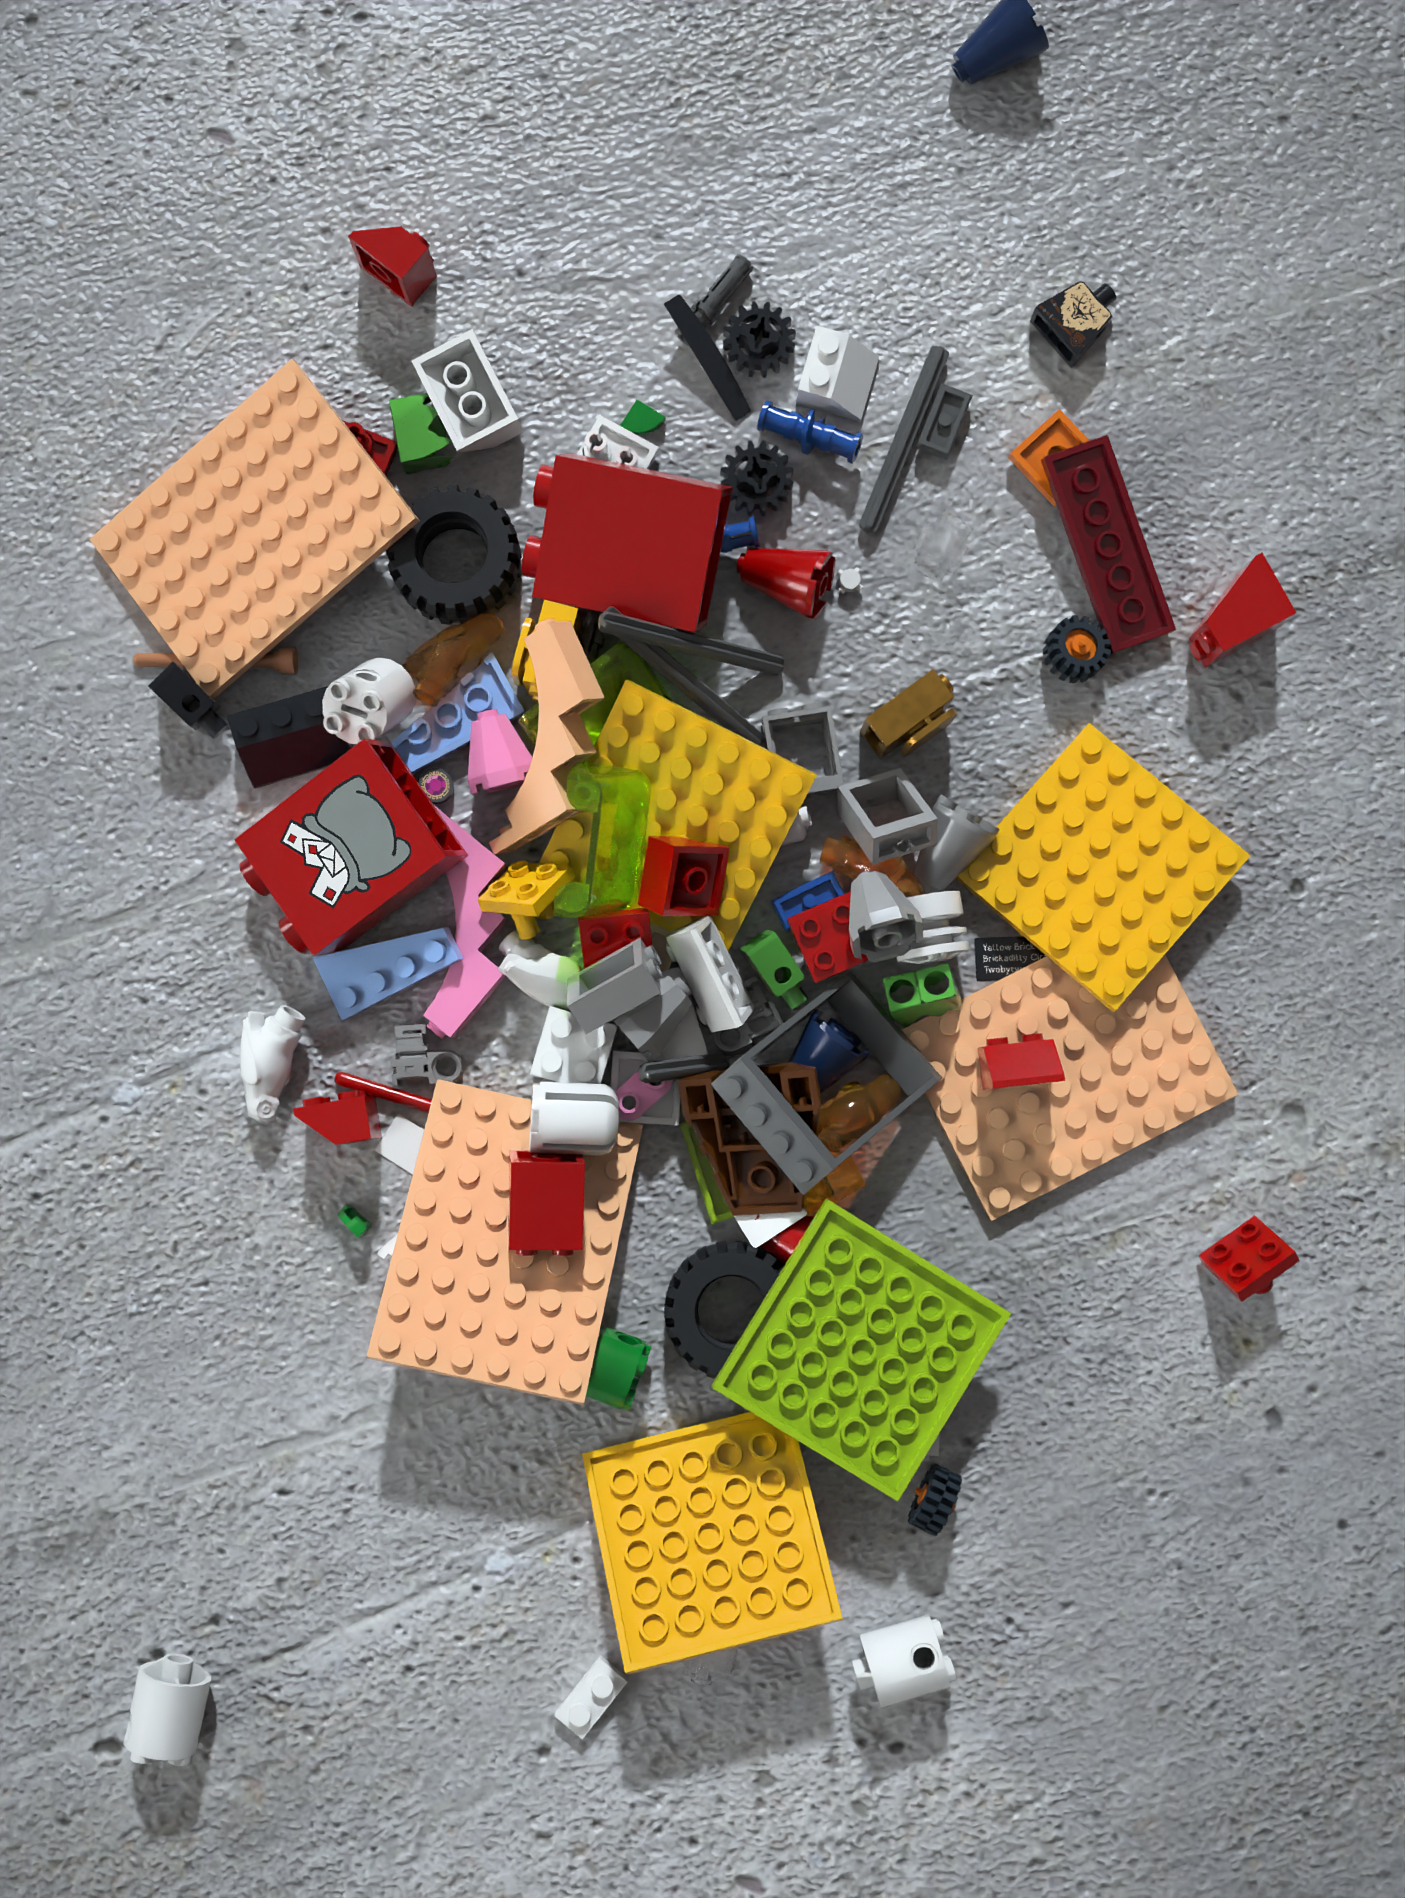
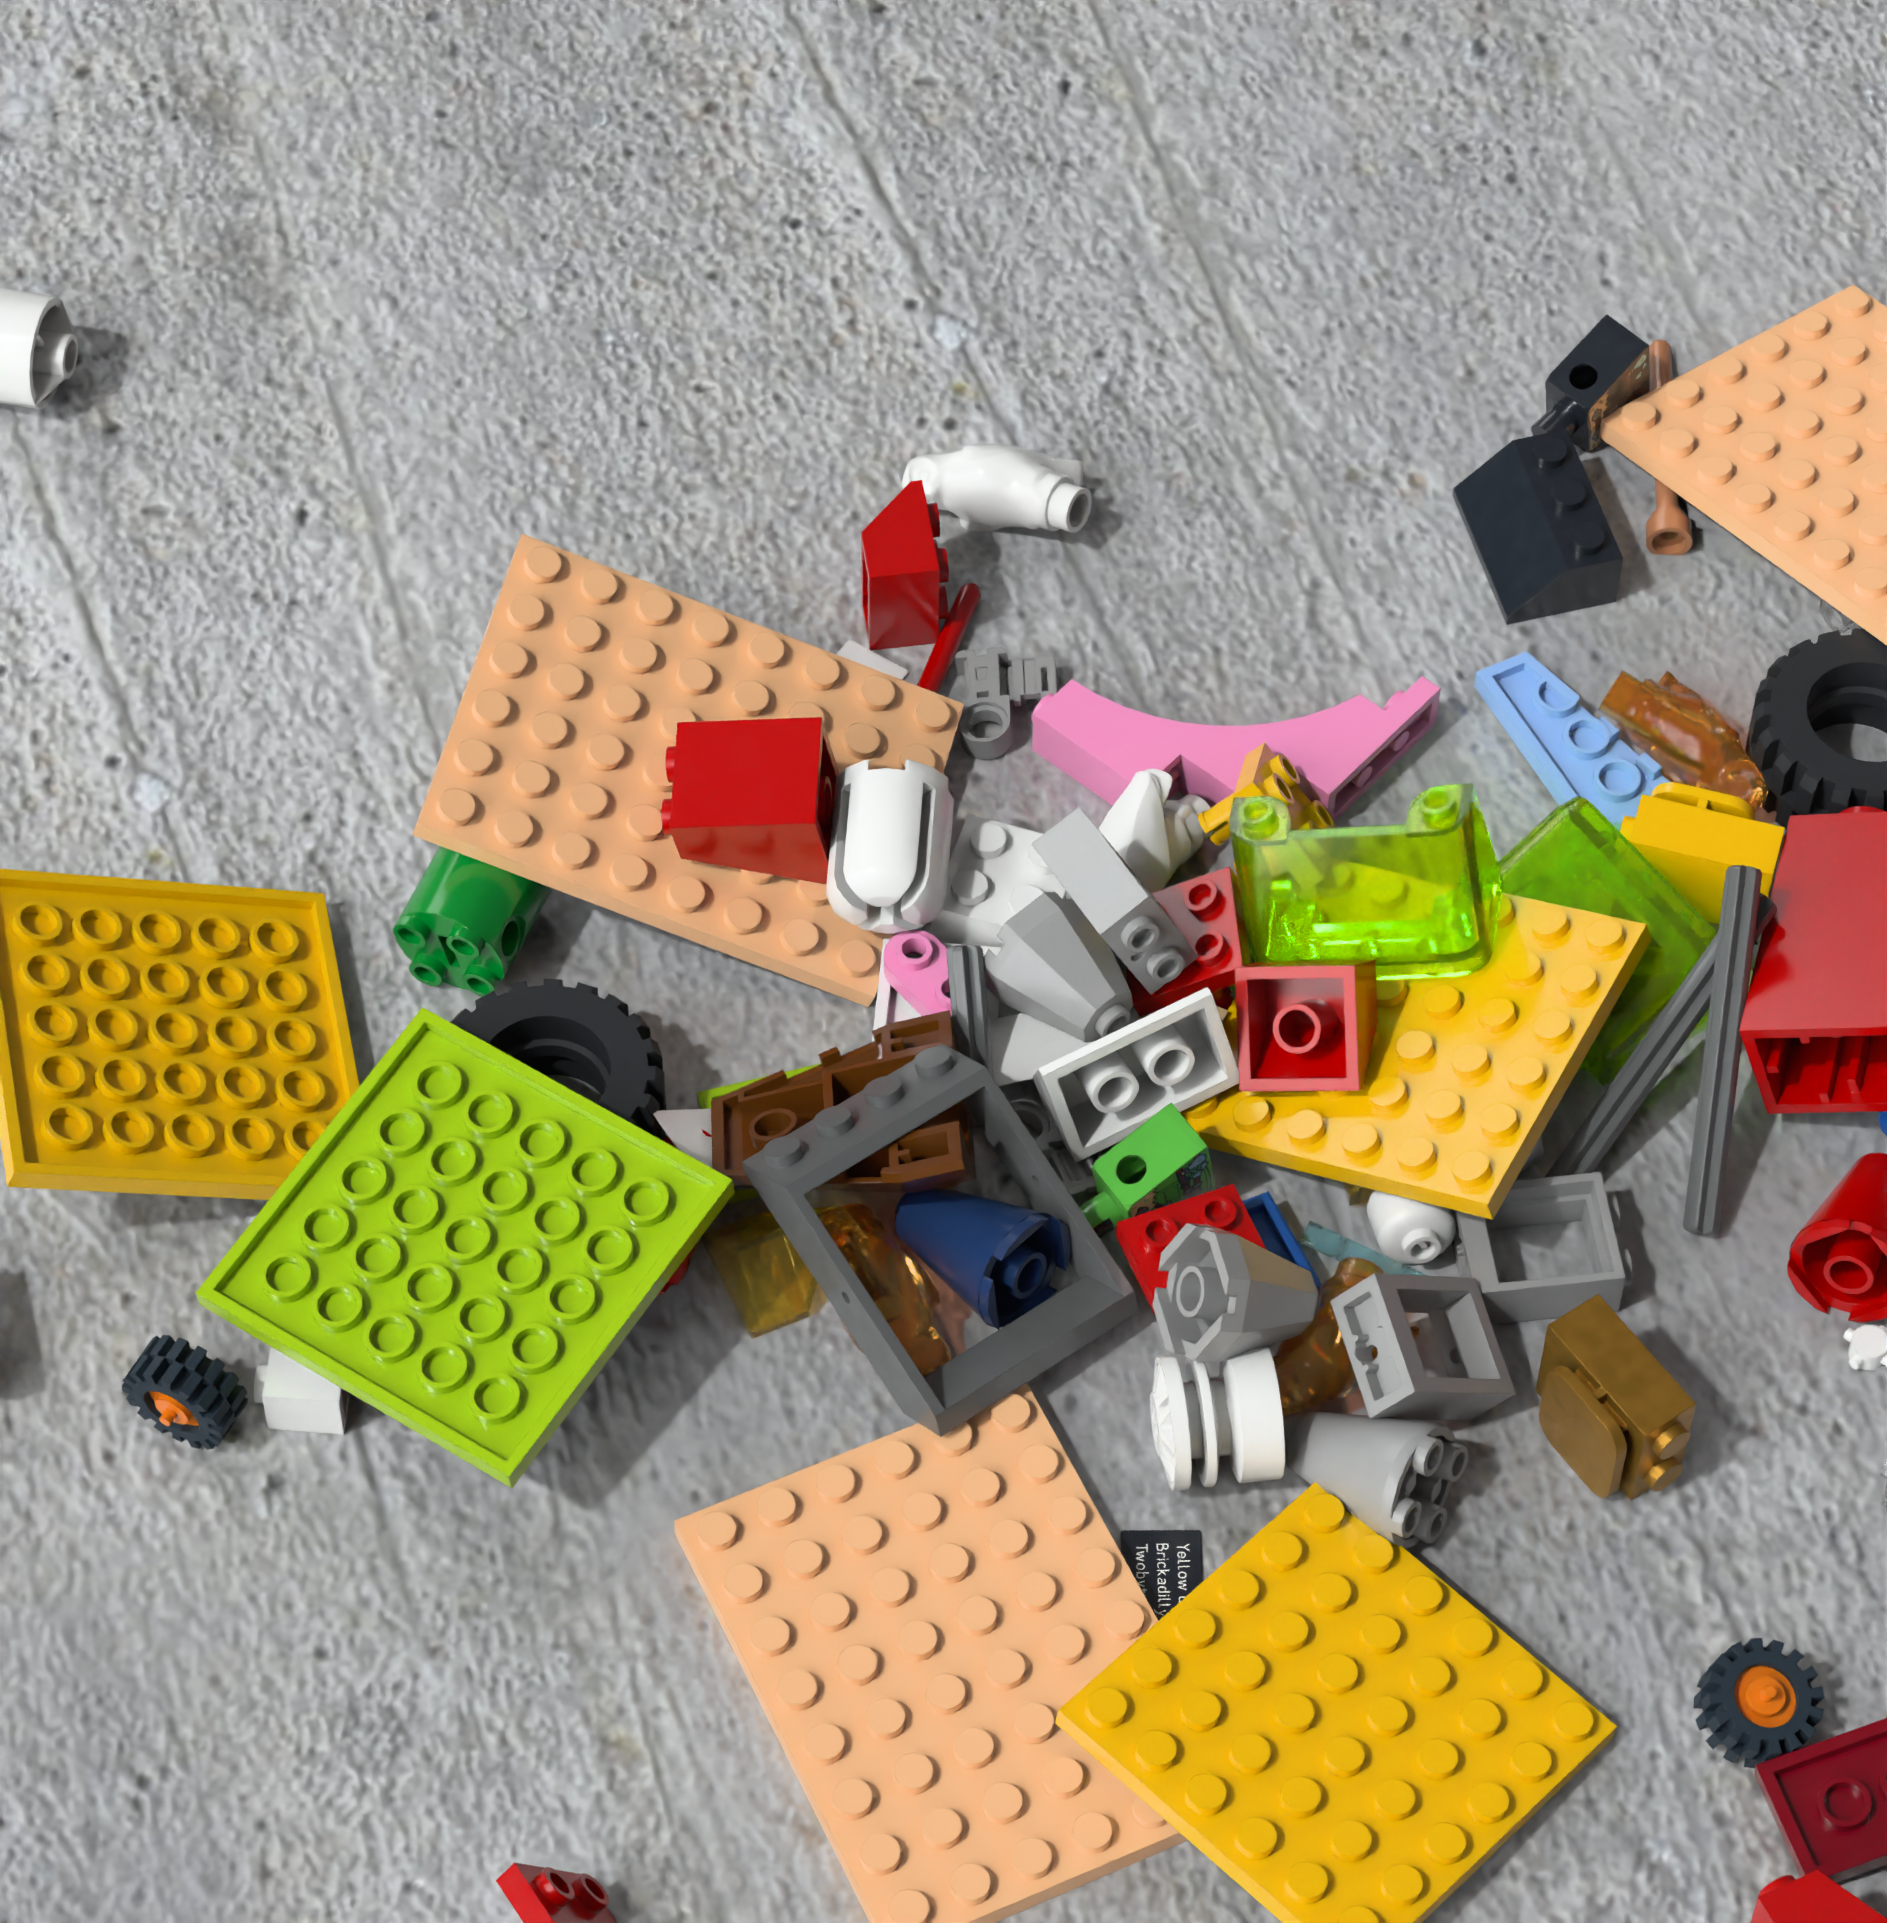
camera: 95 degrees right, 30 degrees down
(348, 849) = (1351, 575): red brick -> none
(354, 1220) = (735, 596): green tile -> none
(368, 701) = (1598, 605): white cylinder -> none
(381, 970) = (1149, 639): light blue wing -> none
(437, 785) = (1463, 727): tile -> none
(496, 754) = (1517, 780): bright pink cone -> none
(564, 691) = (1605, 827): light nougat arch -> none
(804, 850) = (1333, 1245): none -> clear light blue wheel
(911, 1011) = (1100, 1448): bright green piece -> none
(1019, 1063) = (962, 1538): red slope -> none

